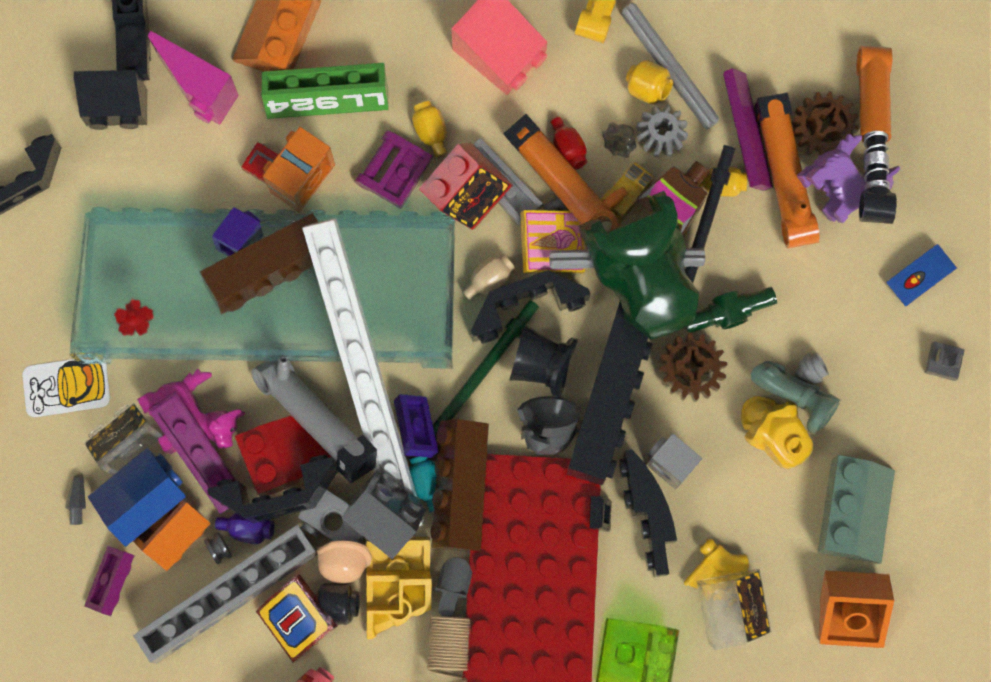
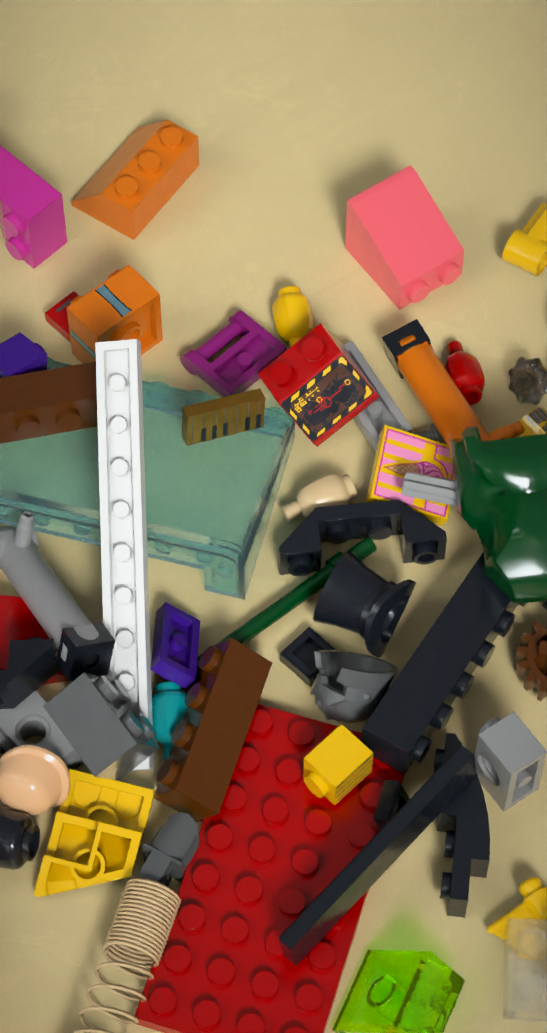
camera: 15 degrees right, 20 degrees down
(325, 90) = (174, 249): bright green brick -> none
(404, 239) = (223, 417): none -> pearl gold tile
(508, 403) = (300, 655): none -> black tile
(555, 496) = (337, 765): none -> yellow brick
(601, 559) = (377, 855): none -> black tile

